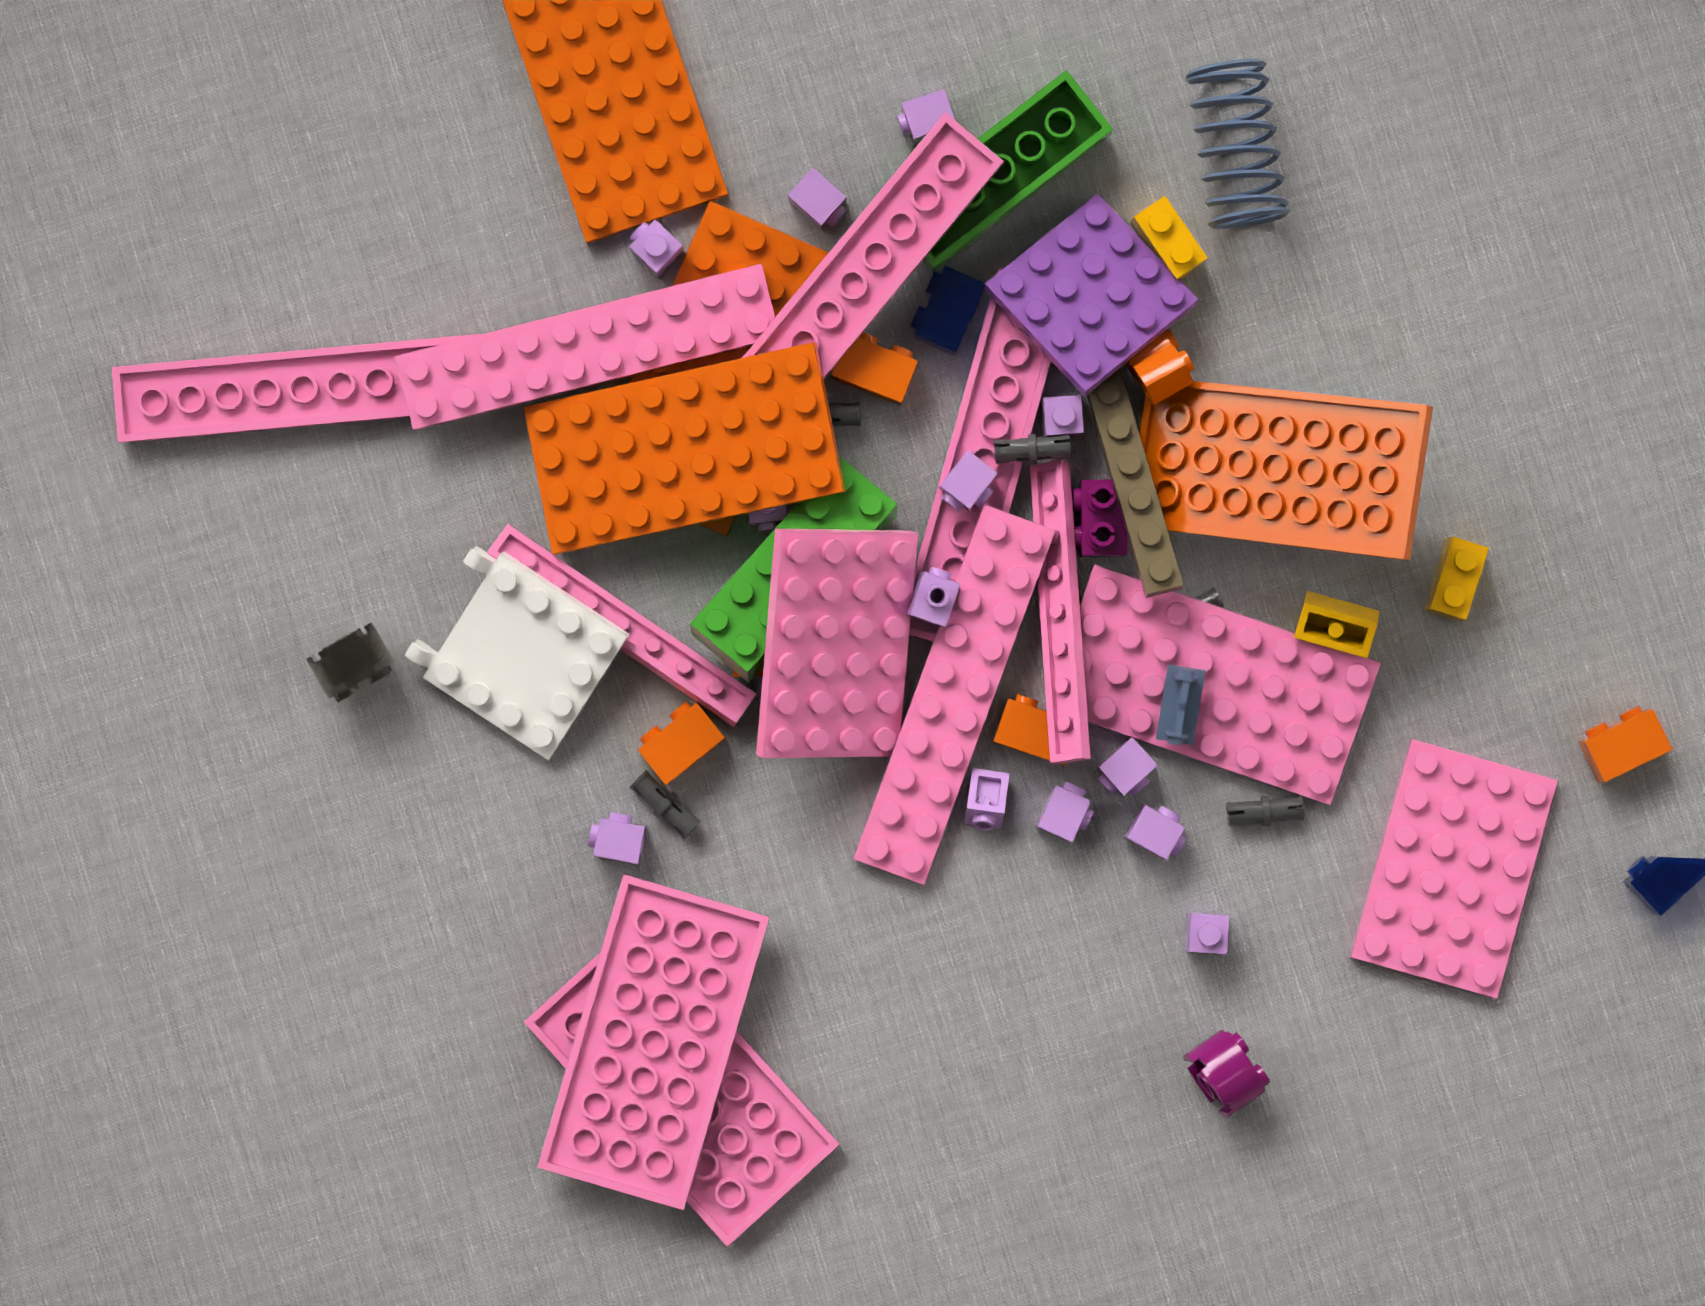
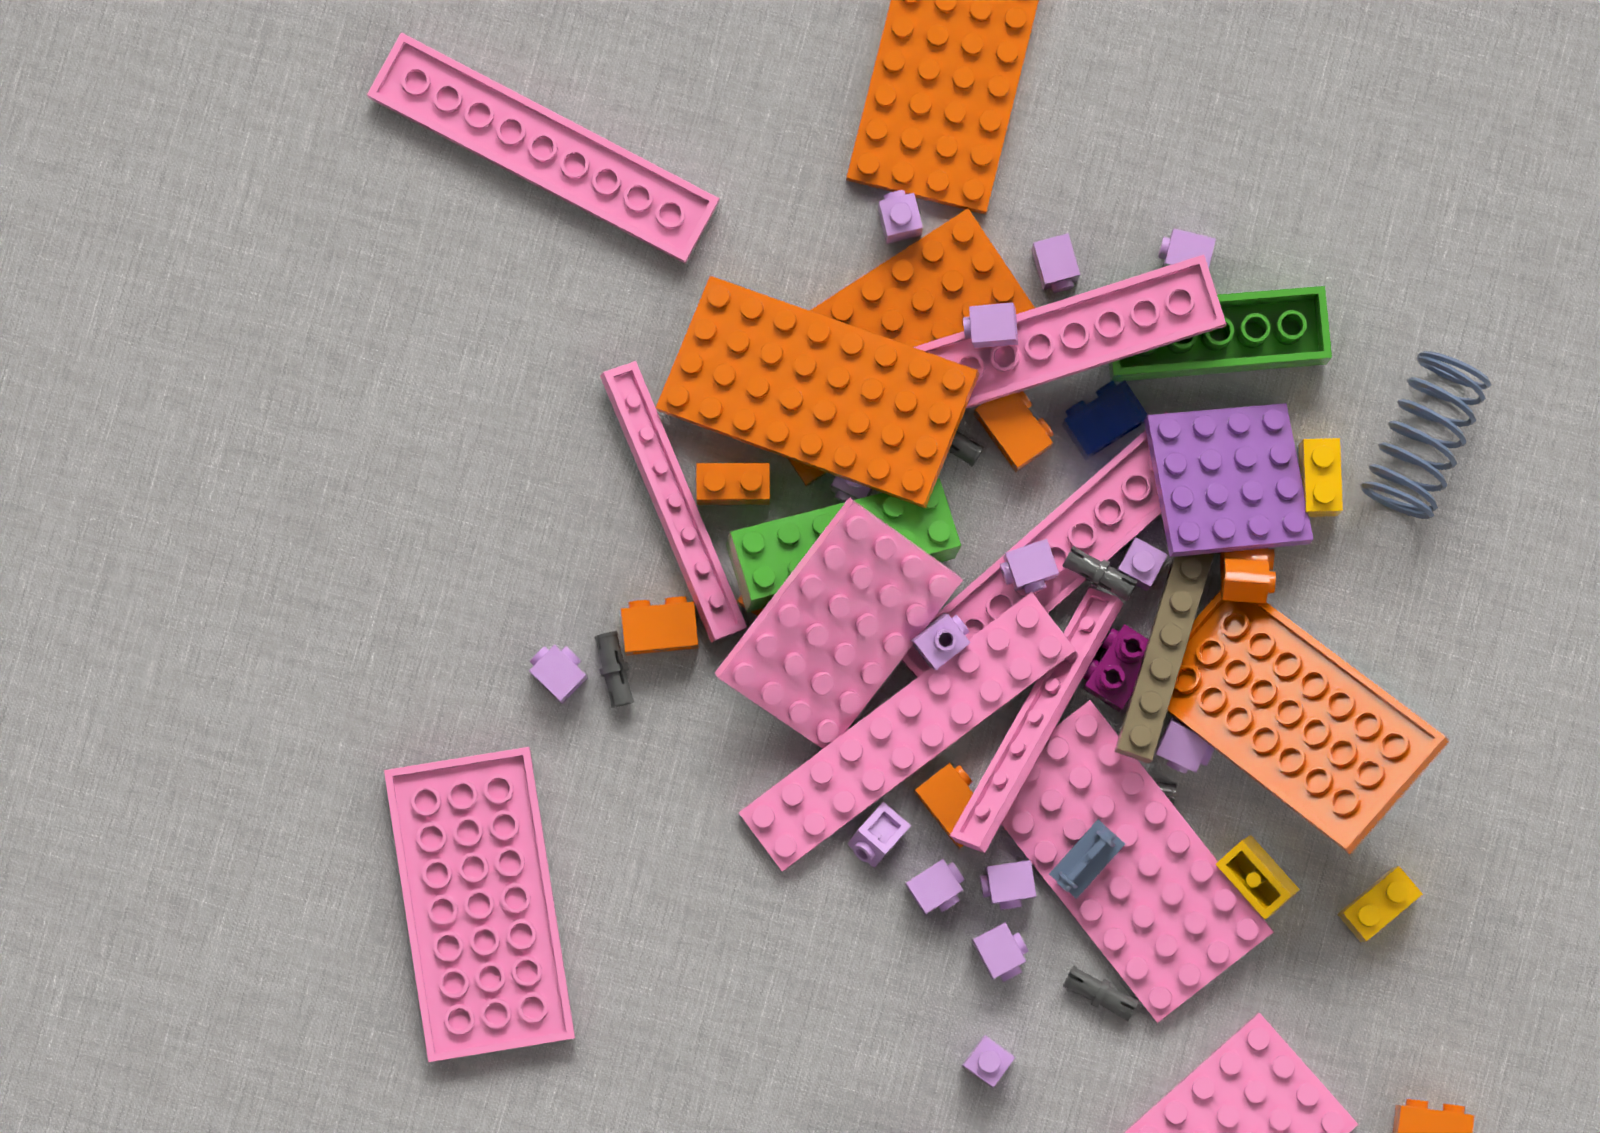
camera: 30 degrees right, 5 degrees down
(350, 662) = (436, 388): clear smoke brick -> none
(522, 653) = (579, 472): white plate -> none
(585, 347) = (790, 259): bright pink plate -> none
(653, 1042) = (478, 854): bright pink plate -> none
(663, 576) = (733, 483): none -> orange brick
(800, 294) = (991, 325): none -> lavender brick
(1200, 554) = (1183, 747): none -> lavender brick

